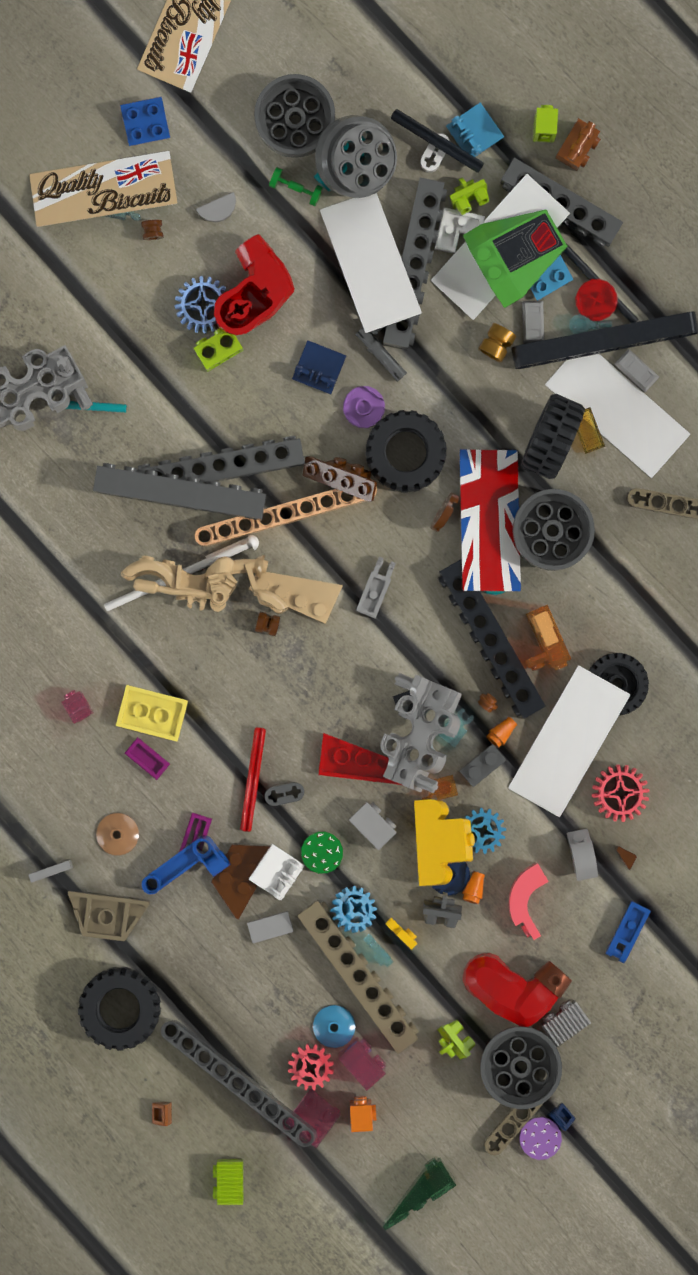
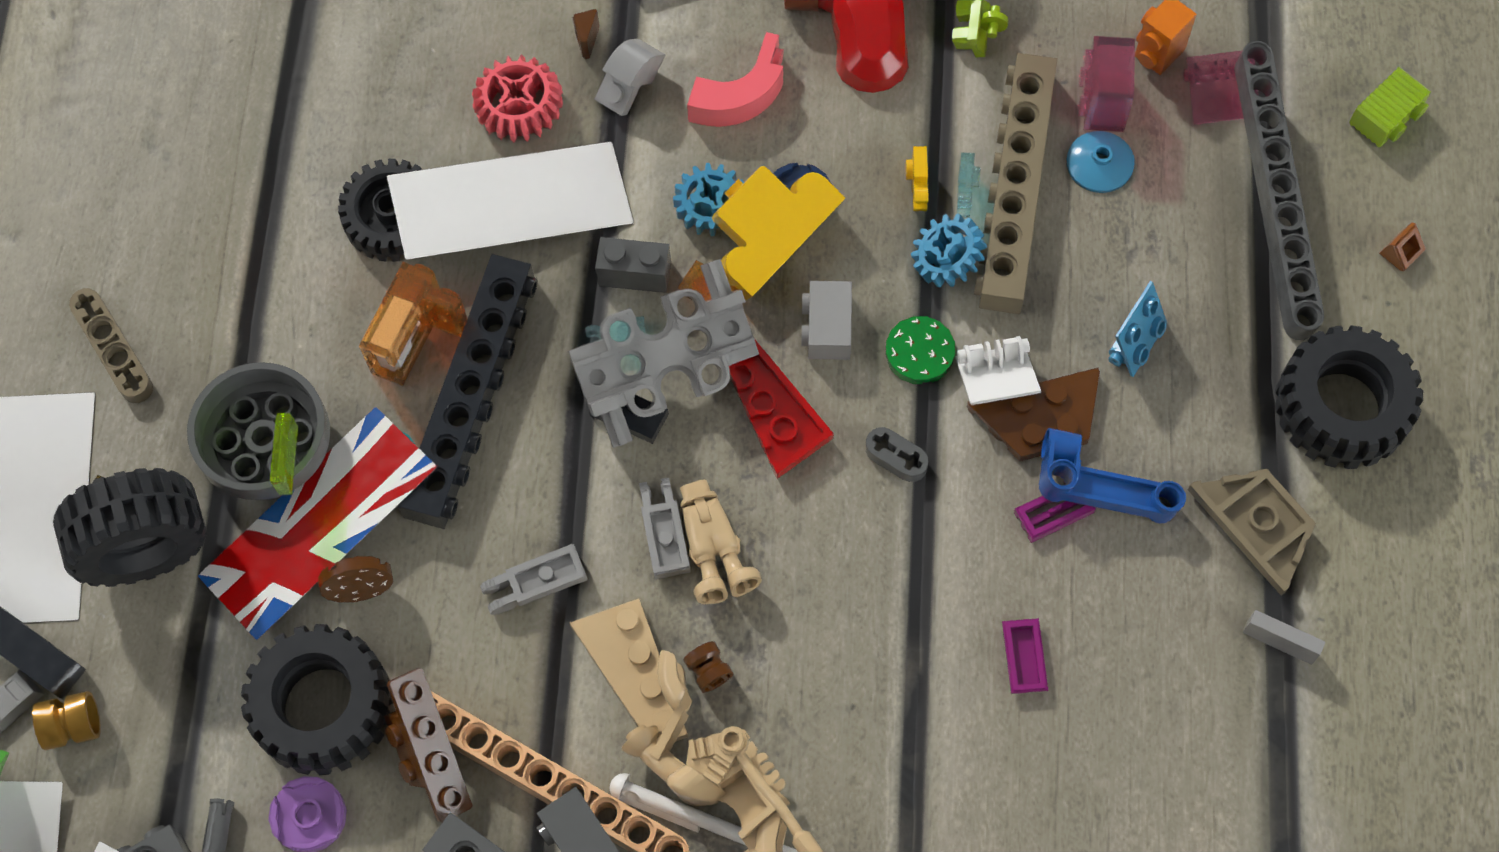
camera: 130 degrees left, 20 degrees down
(77, 706) = (1053, 804): clear pink brick -> none
(123, 824) = (1145, 620): medium nougat dish -> none
(152, 713) = (963, 703): light yellow plate -> none
(235, 961) = (1139, 332): none -> dark azure hinge
(253, 779) = (917, 507): red axle -> none
(270, 927) = (1067, 327): light grey tile -> none
(302, 1072) = (1189, 136): coral gear -> none
(324, 678) = (712, 536): none -> tan piece
(345, 661) = (664, 533): none -> light grey hinge
(442, 908) = (846, 163): dark grey hips -> none
(474, 889) = (788, 150): orange cone -> none
(488, 702) = (551, 326): dark orange plate -> none
(500, 733) = (573, 281): orange cone -> none
(524, 528) = (284, 453): none -> clear neon green tile

